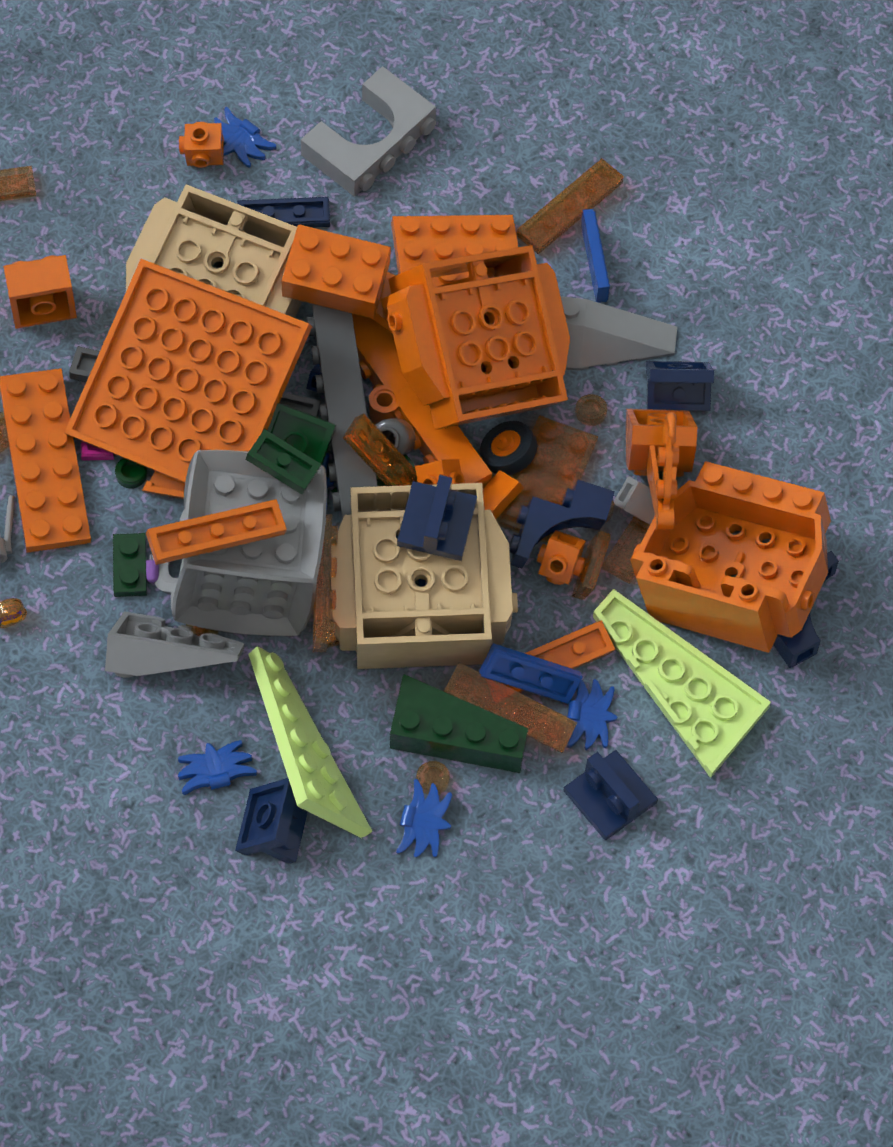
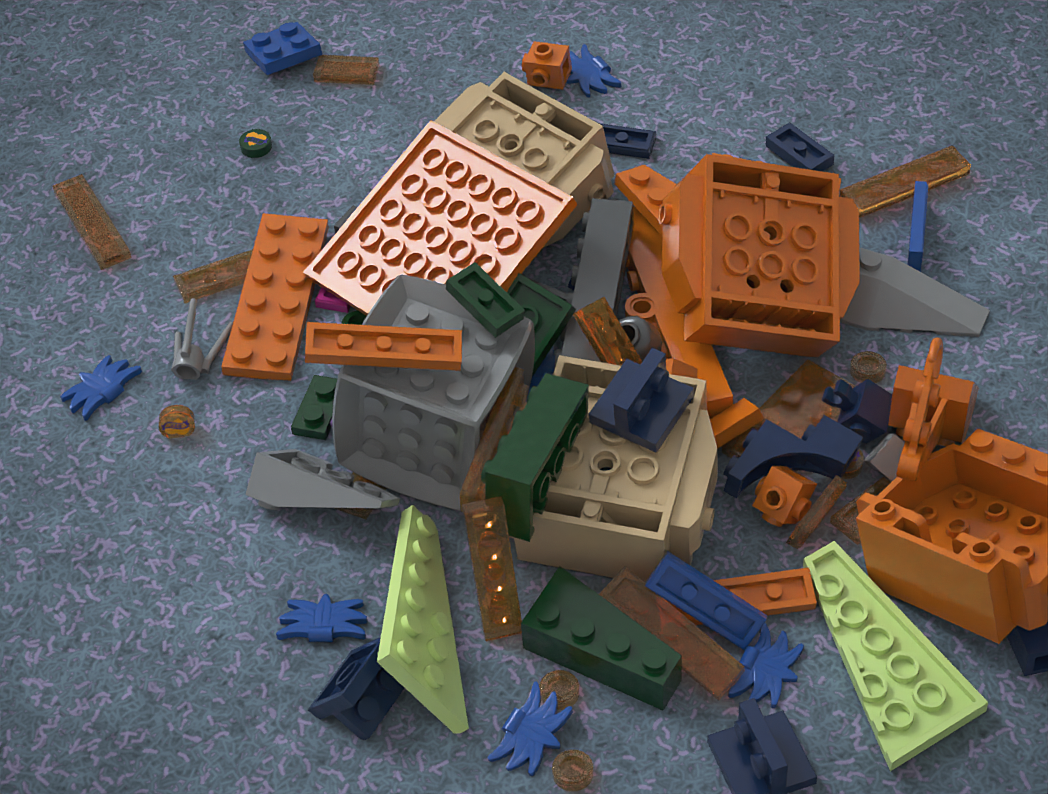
camera: 25 degrees right, 15 degrees down
(40, 291) = (334, 150): orange brick -> none
(336, 271) = (623, 166): orange brick -> none
(357, 695) = (492, 568): none -> clear orange plate
(358, 165) = (695, 109): light grey arch -> none
(366, 591) = (535, 450): none -> dark green wedge
(466, 190) = (799, 149): none -> dark blue plate
(467, 844) = (572, 770): none -> clear orange tile
(508, 447) = (762, 379): black wheel -> none
(602, 459) = (863, 408): none -> dark blue brick
(679, 385) = (977, 358): dark blue bracket -> none

